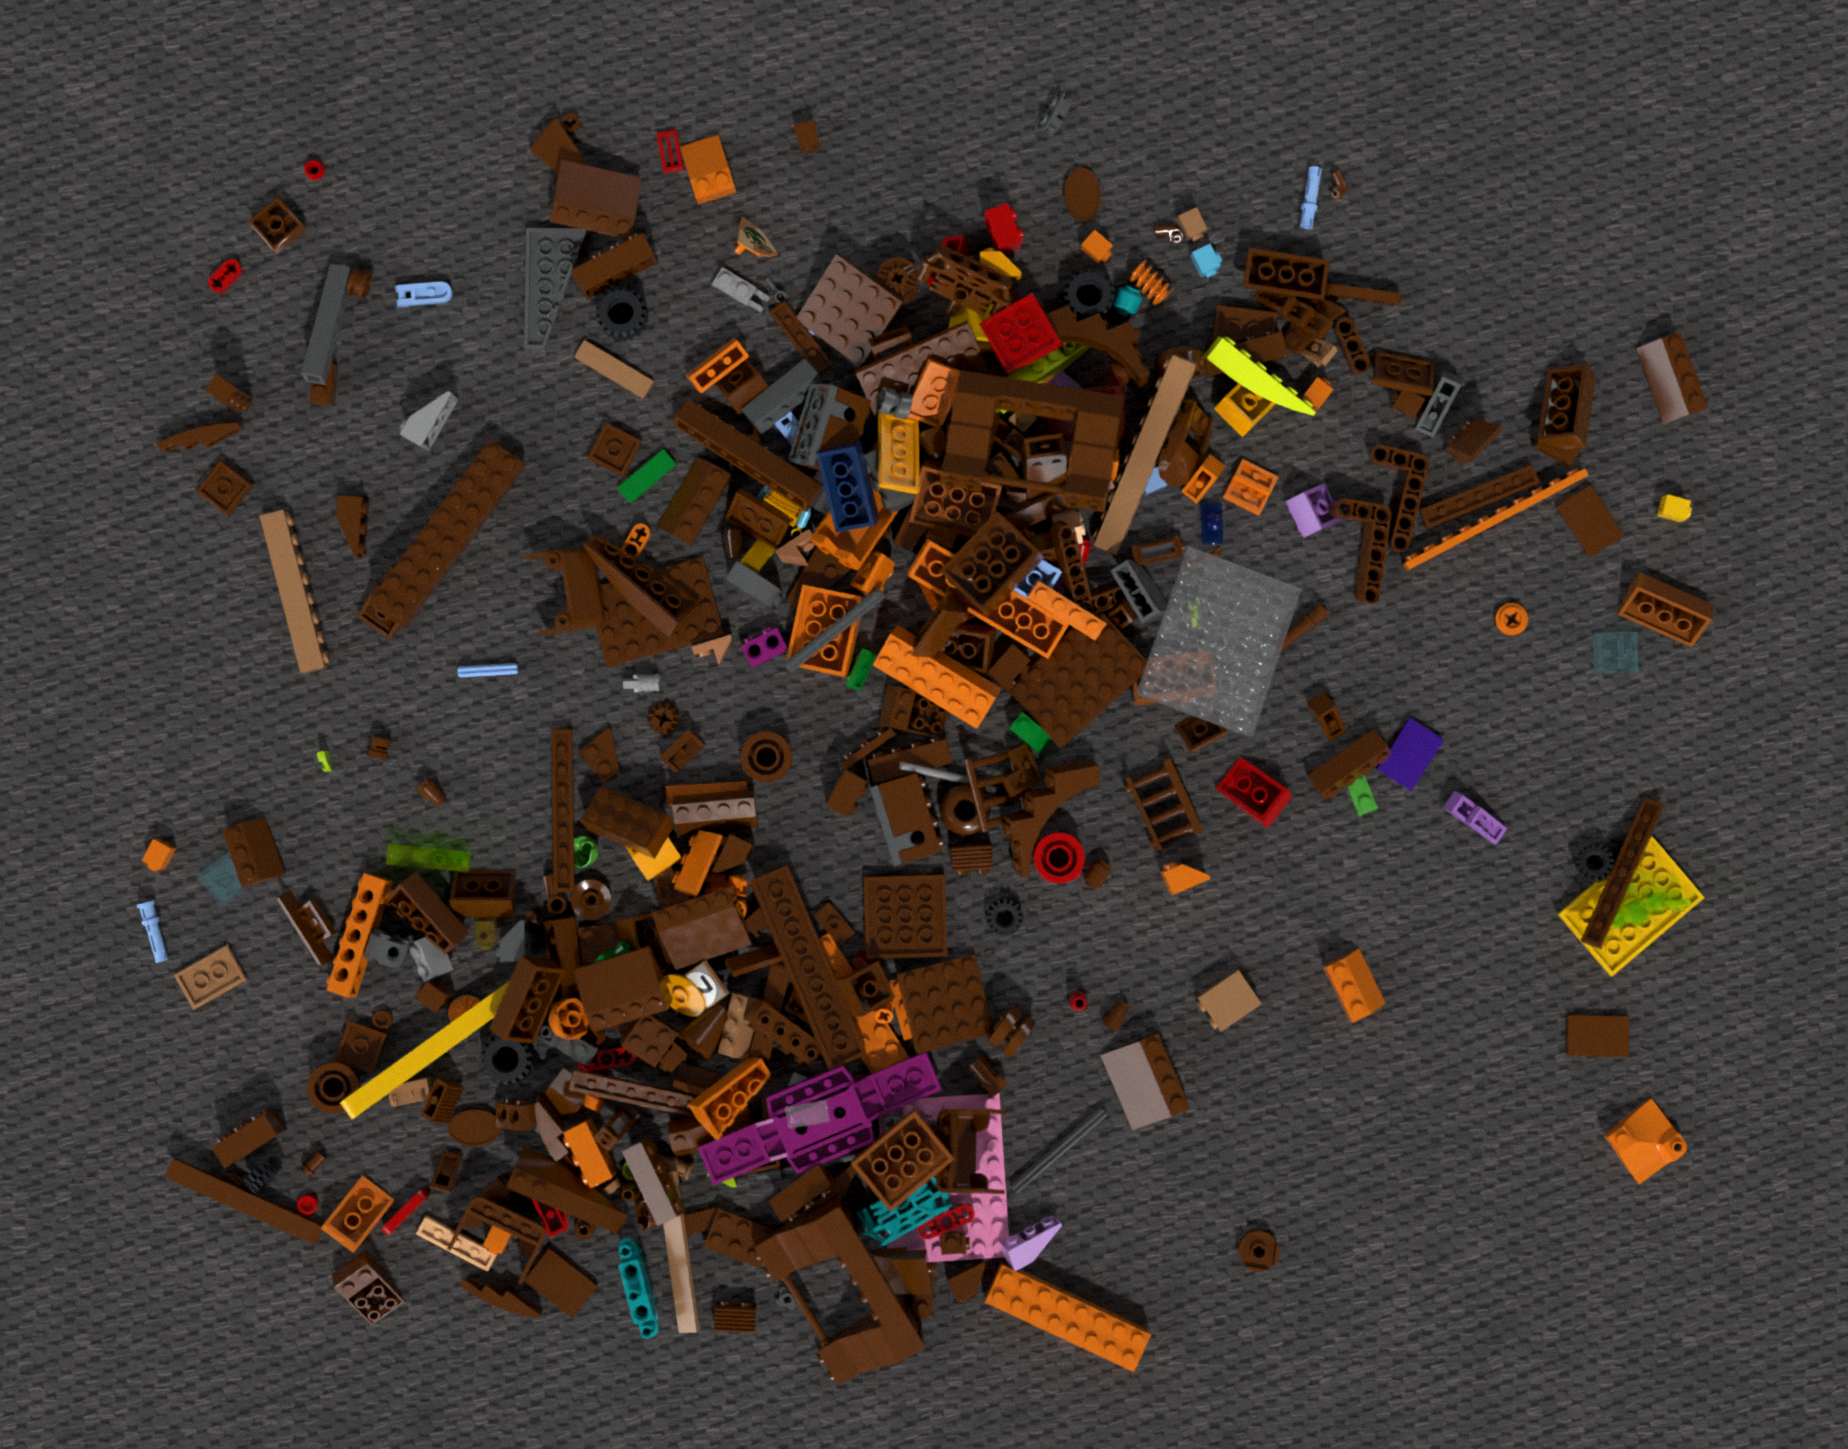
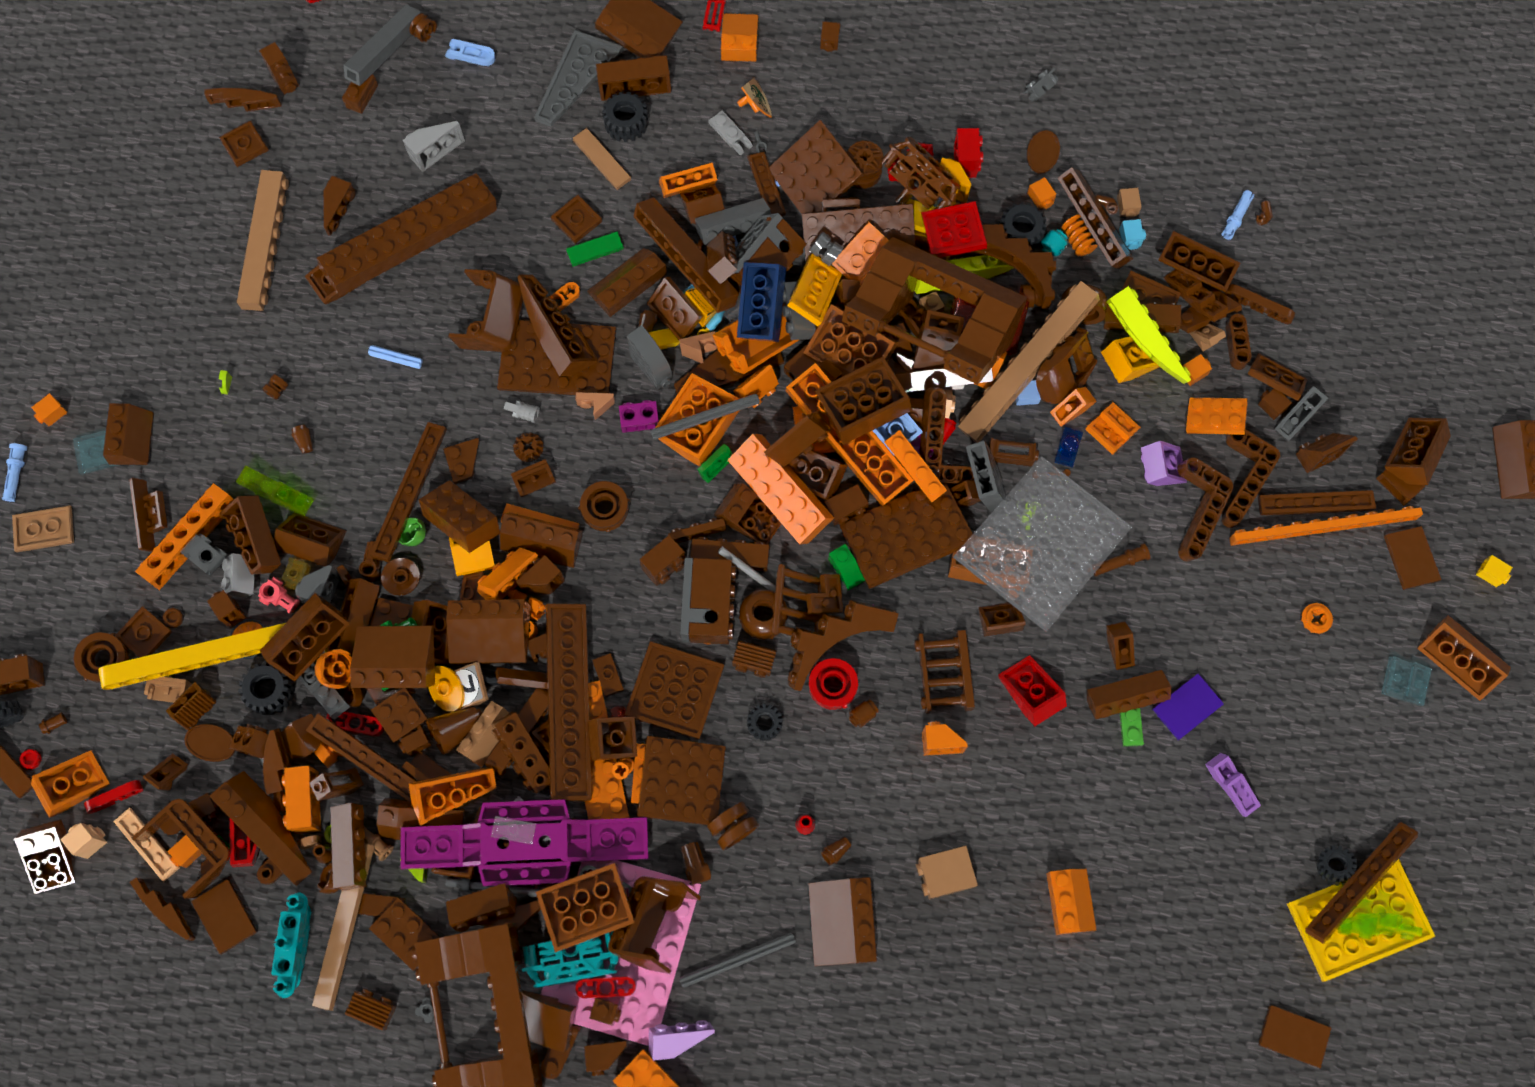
camera: 20 degrees right, 15 degrees down
(398, 1263) = (84, 840): none -> light nougat brick
(480, 962) = (279, 597): none -> coral connector
(789, 451) = (721, 256): none -> reddish brown brick
(1162, 257) = (1095, 218): none -> reddish brown brick
(1353, 439) = (1217, 416): none -> orange plate

